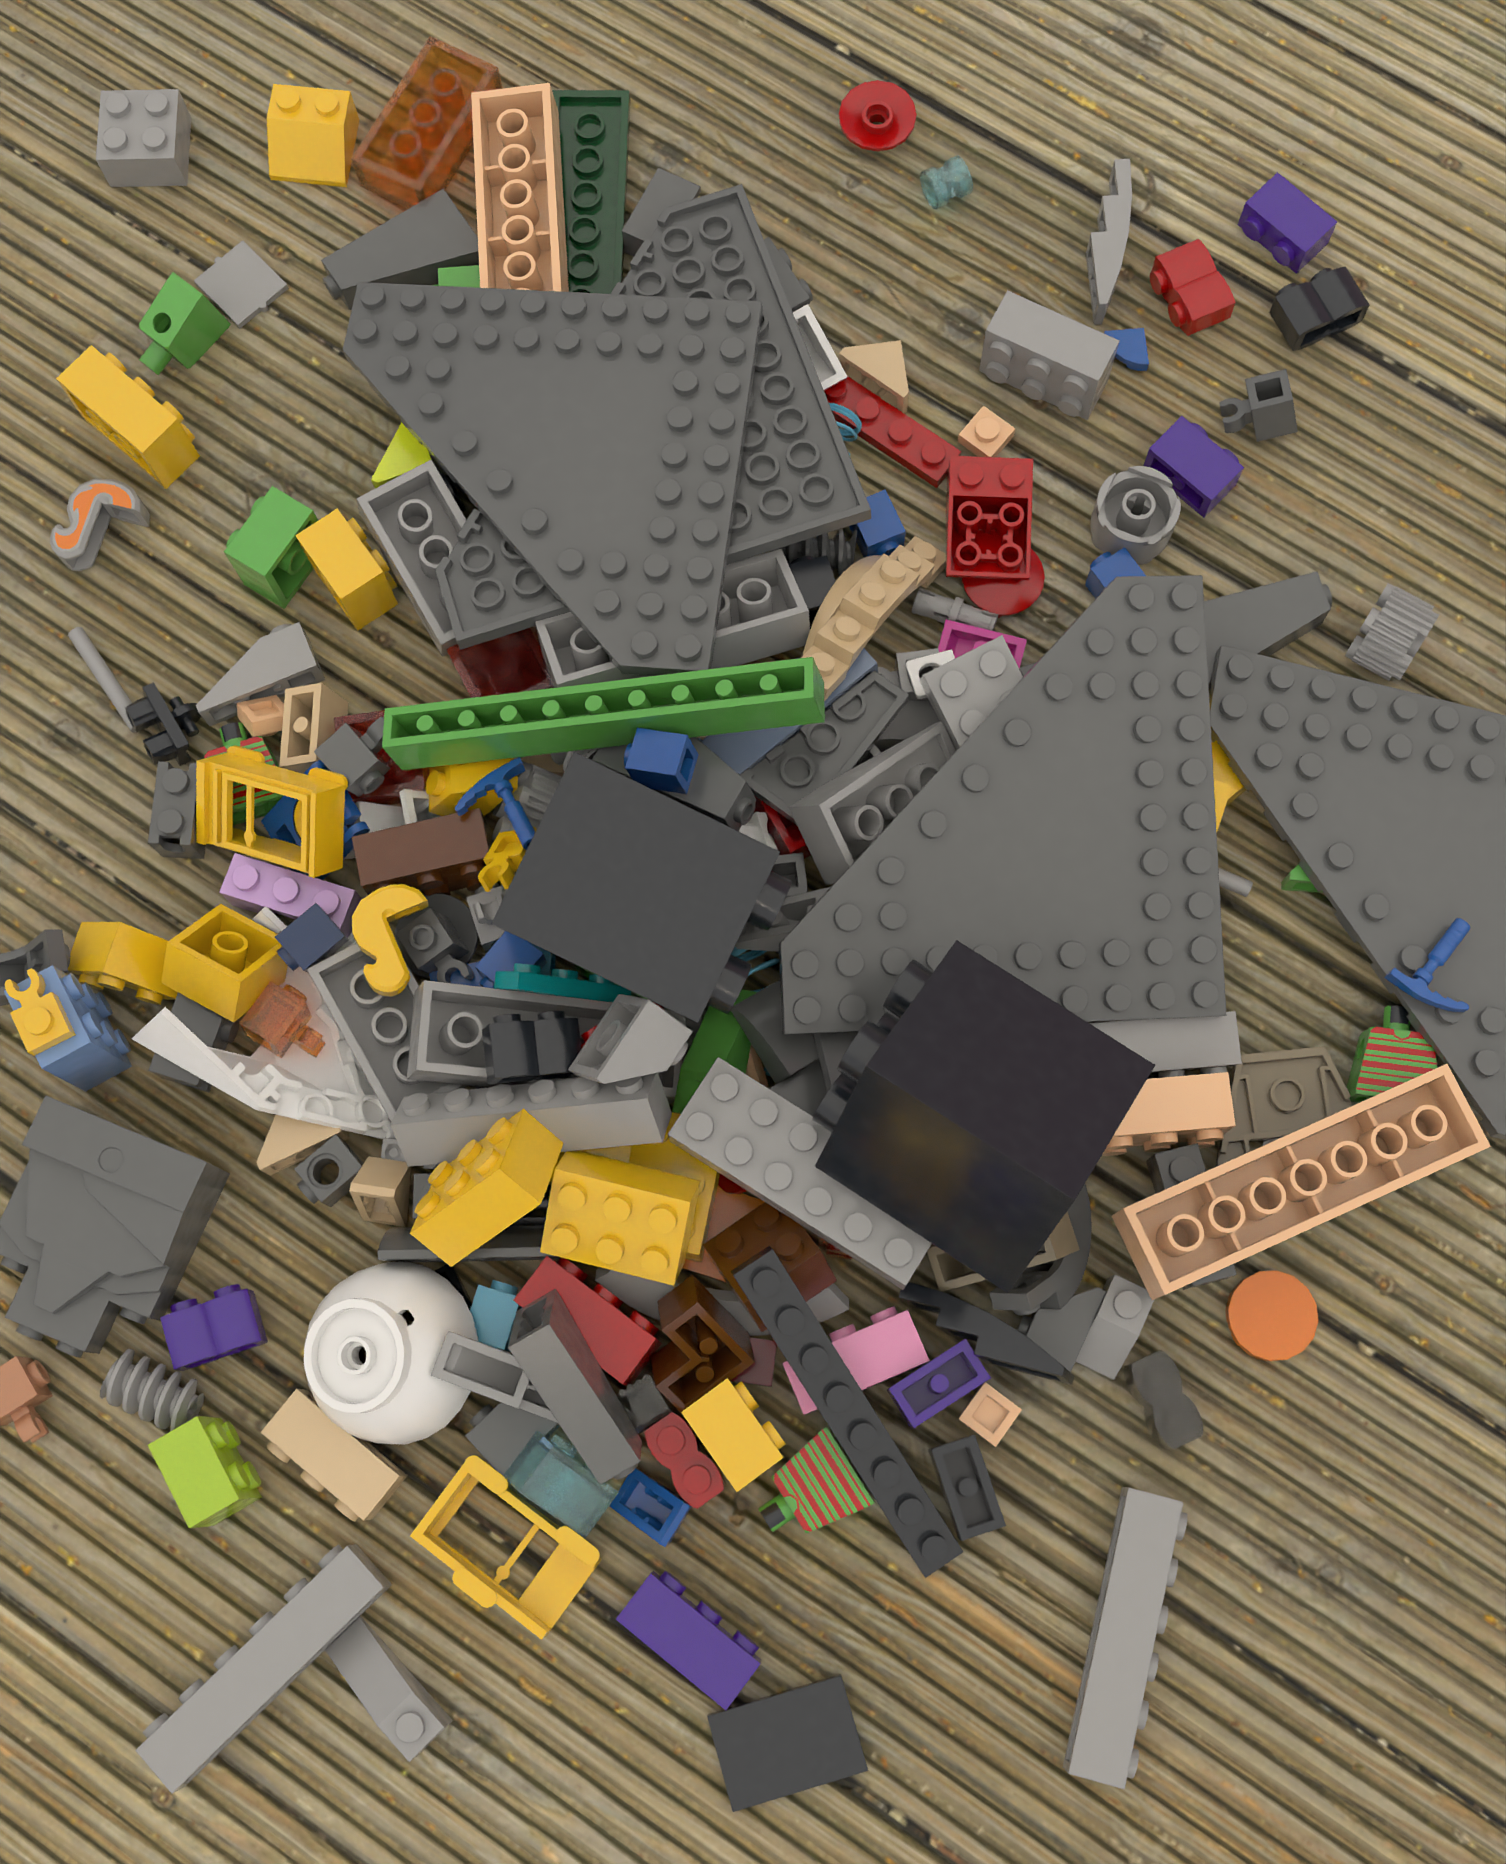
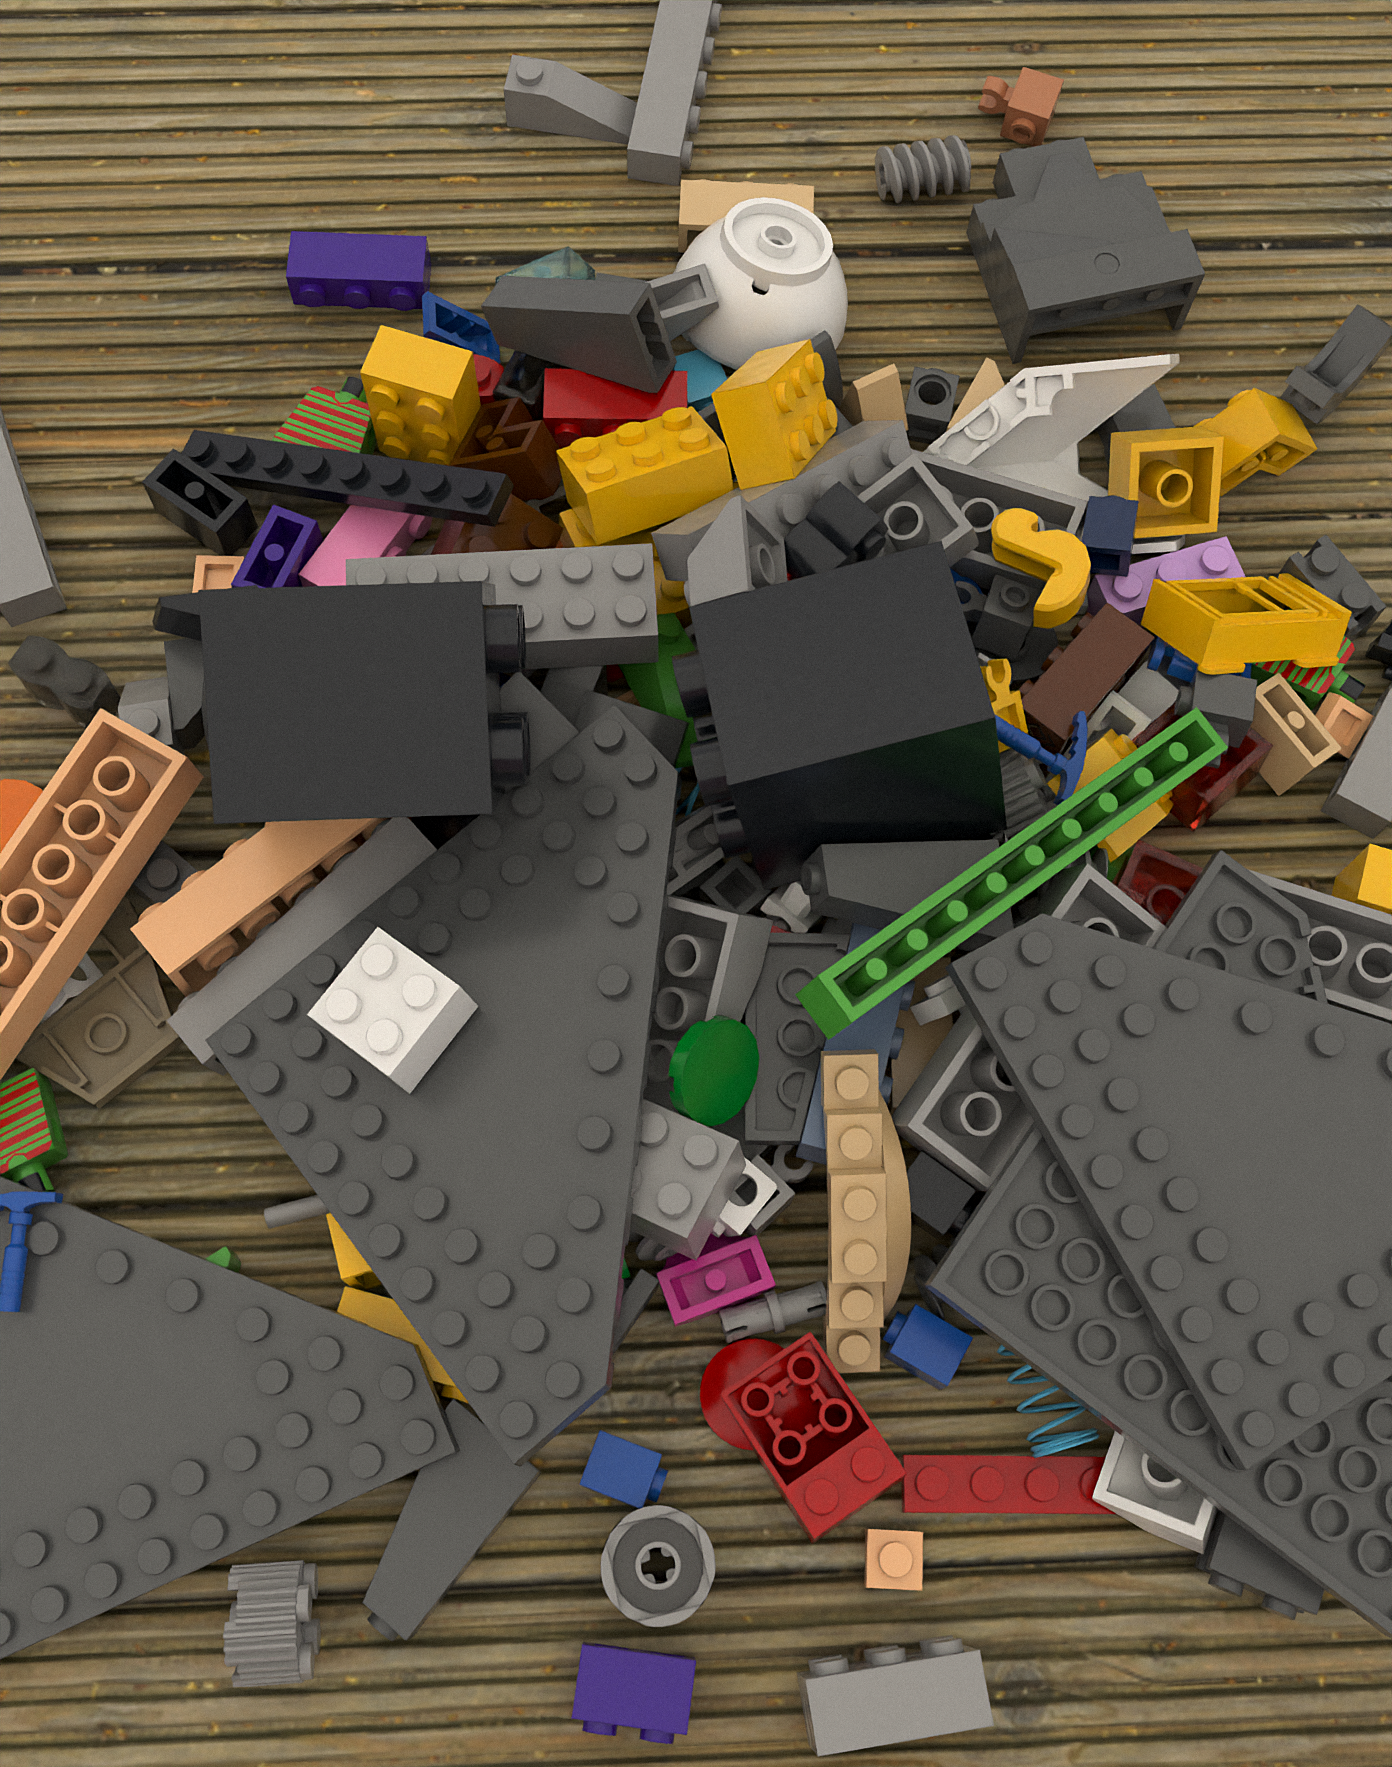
camera: 135 degrees right, 5 degrees down
(41, 1018) = (1262, 290): yellow plate -> none
(96, 1049) = (1239, 338): medium blue brick -> none
(206, 1470) = (831, 135): lime brick -> none
(214, 1328) = (918, 240): dark purple brick -> none
(280, 1020) = (1076, 471): clear orange brick -> none
(555, 1582) = (548, 206): yellow piece -> none
(661, 760) = (925, 856): blue brick -> none
(787, 1742) = (227, 260): black tile -> none
(879, 369) = (1063, 1546): tan slope -> none
(904, 735) = (714, 1070): none -> green tile
(1094, 908) = (393, 1009): none -> white brick

